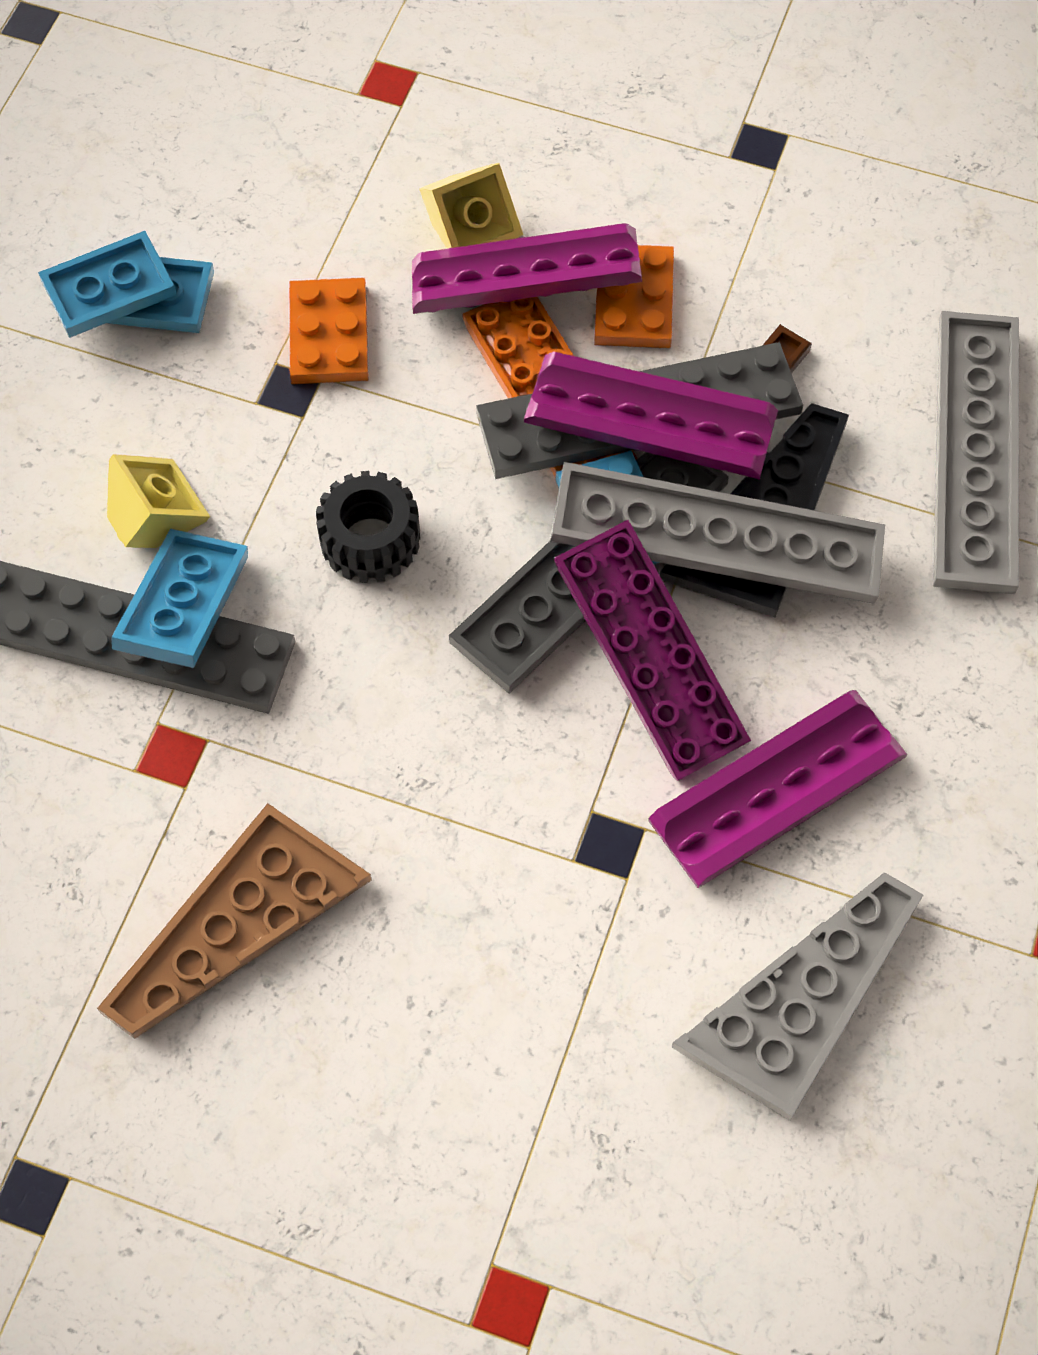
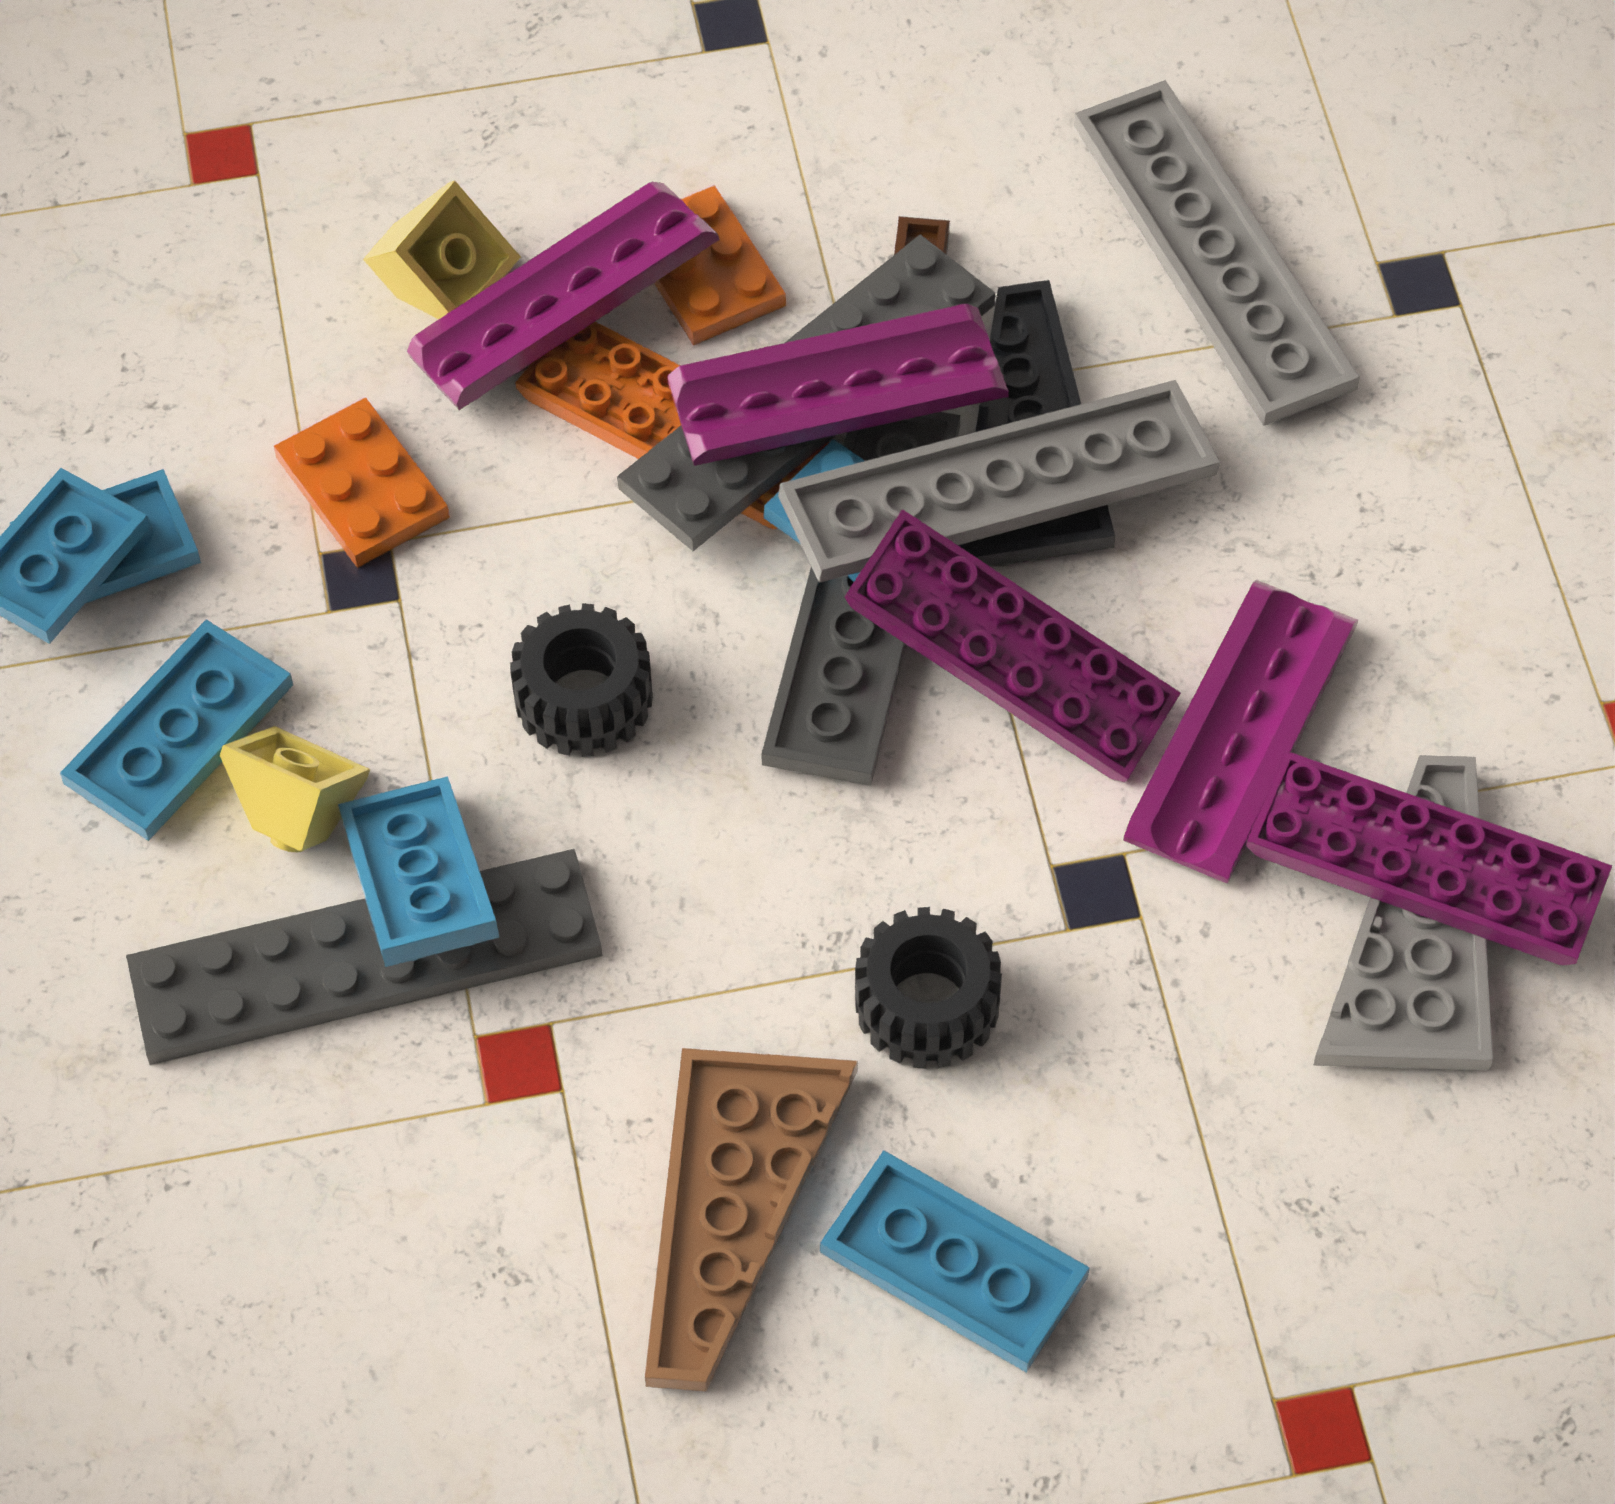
camera: 30 degrees left, 5 degrees down
(126, 421) = (175, 729): none -> dark azure plate
(344, 1045) = (954, 1260): none -> dark azure plate
(439, 818) = (927, 946): none -> black tyre
(841, 951) = (1429, 859): none -> magenta plate

